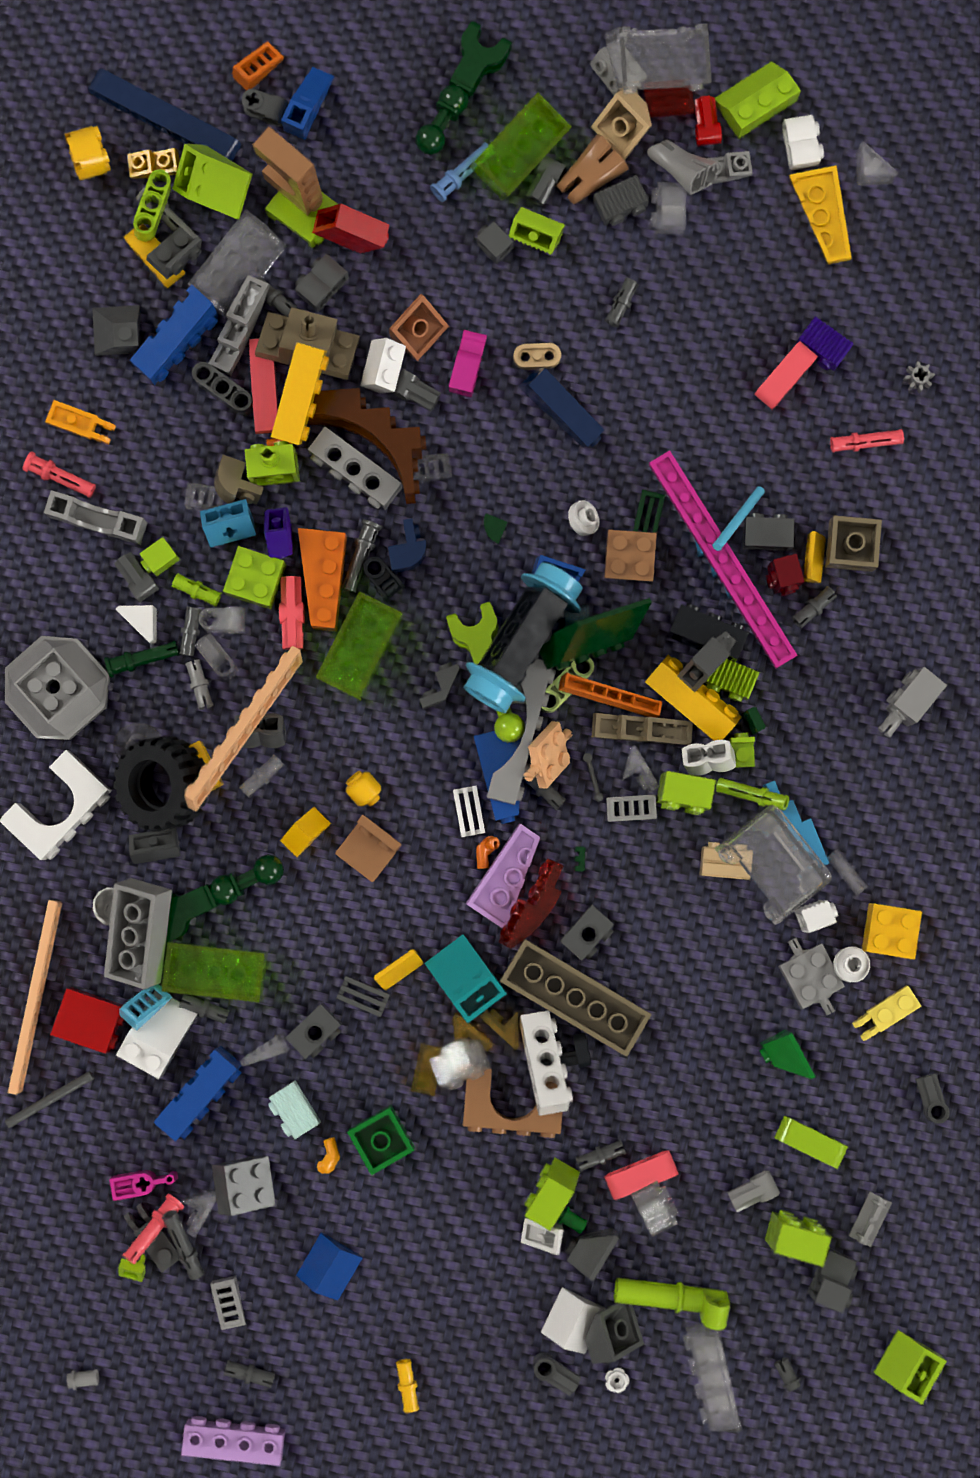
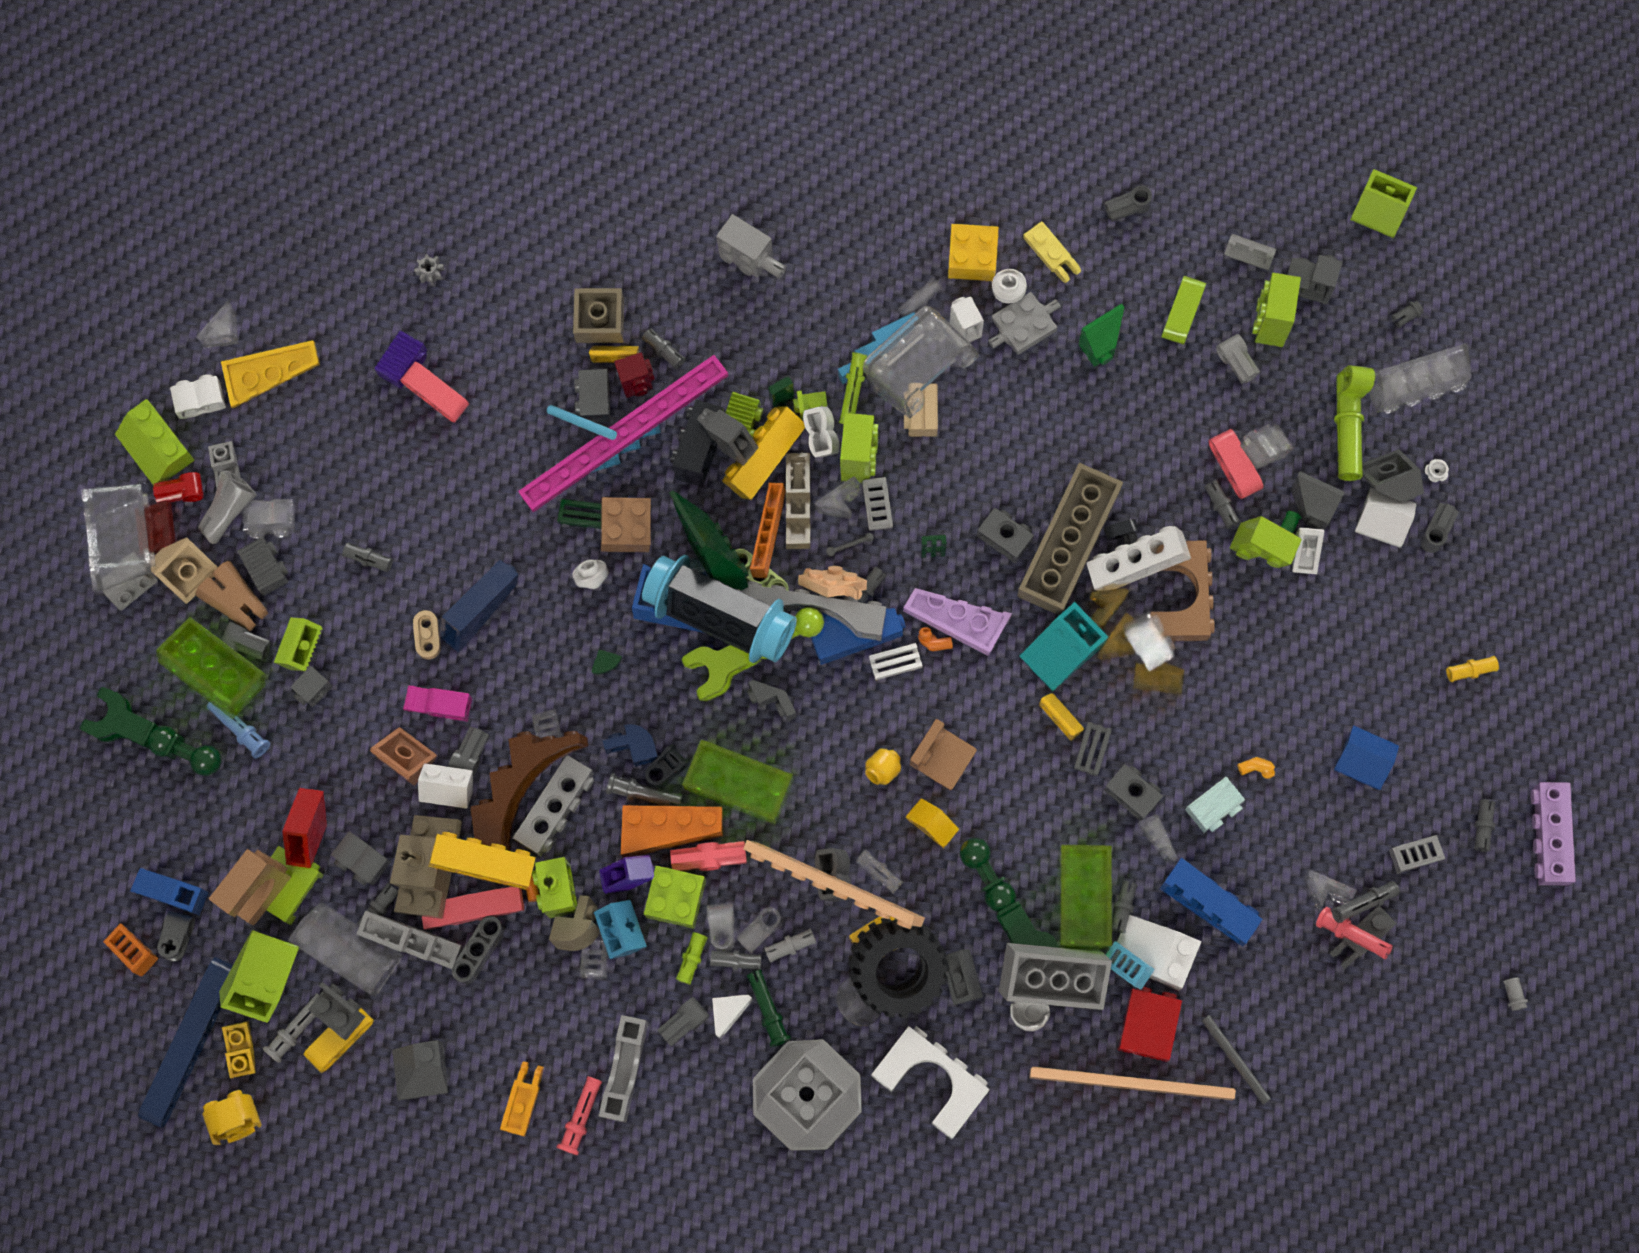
camera: 90 degrees left, 10 degrees down
(131, 1271) = (1398, 954): lime tile -> none
(135, 1188) = (1312, 965): dark pink piece -> none
(152, 194) = (278, 1031): lime beam -> none
(158, 557) = (660, 1000): lime brick -> none
(175, 336) = (425, 1005): blue wedge -> none
(243, 1185) = (1297, 845): brick -> none
(381, 1139) = (1234, 714): green brick -> none
(527, 916) = (993, 590): clear red slope -> none
(856, 442) = (496, 321): coral pin -> none

